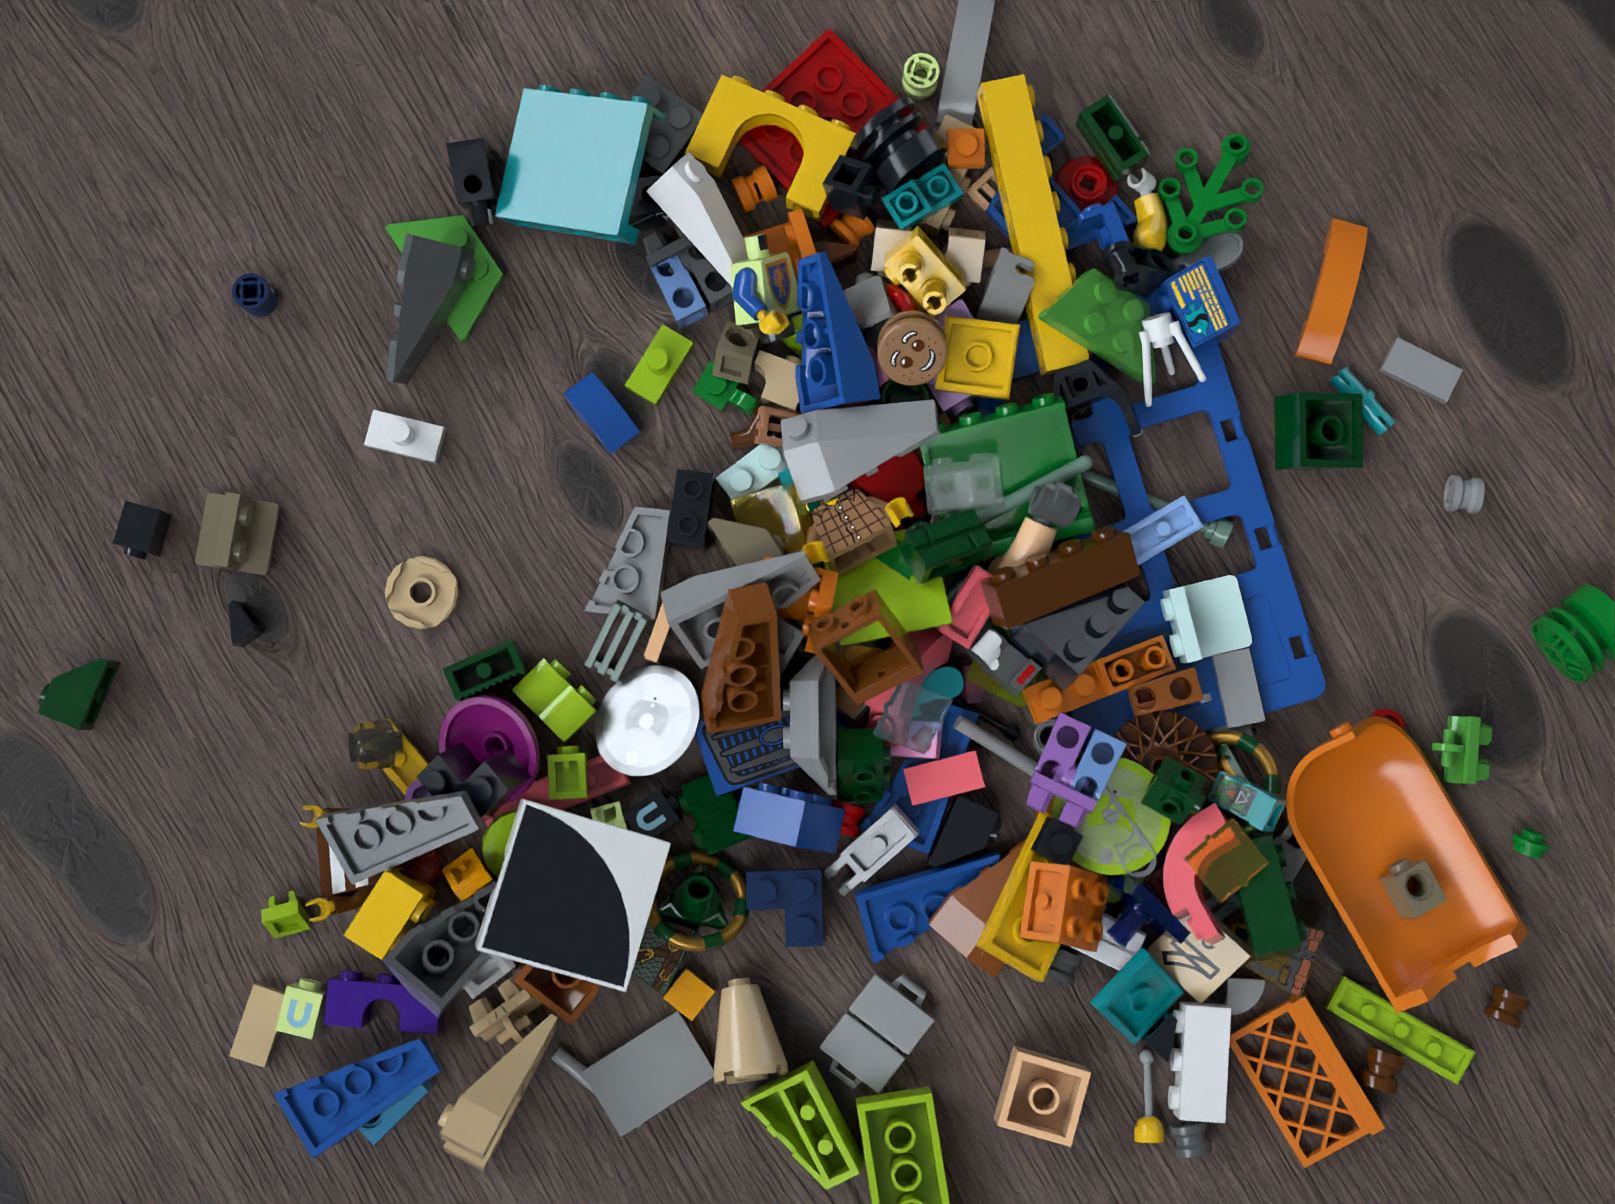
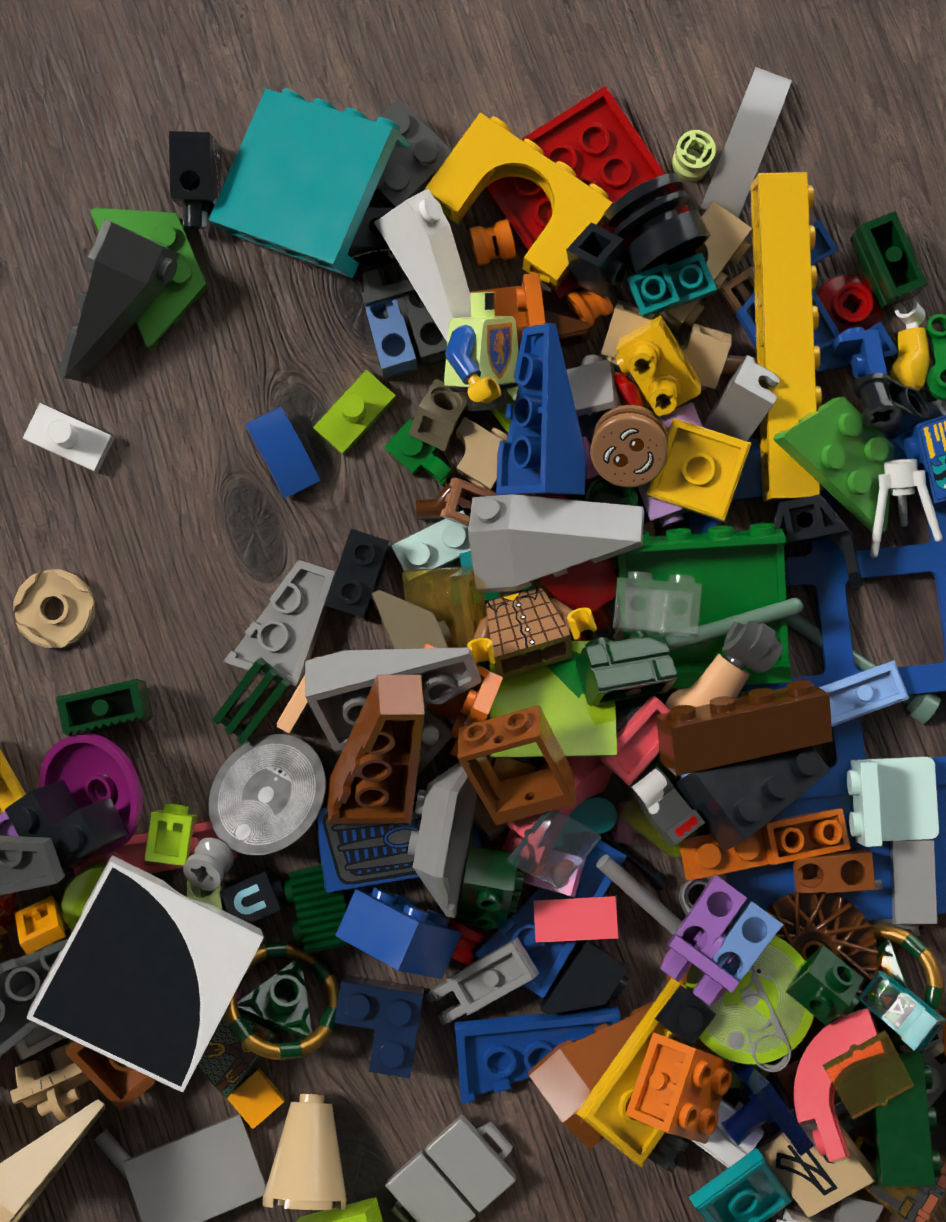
camera: 10 degrees right, 0 degrees up
(556, 699) = (173, 751): lime brick -> none
(607, 791) = (208, 864): none -> light grey wheel
(966, 148) = (728, 241): orange plate -> none

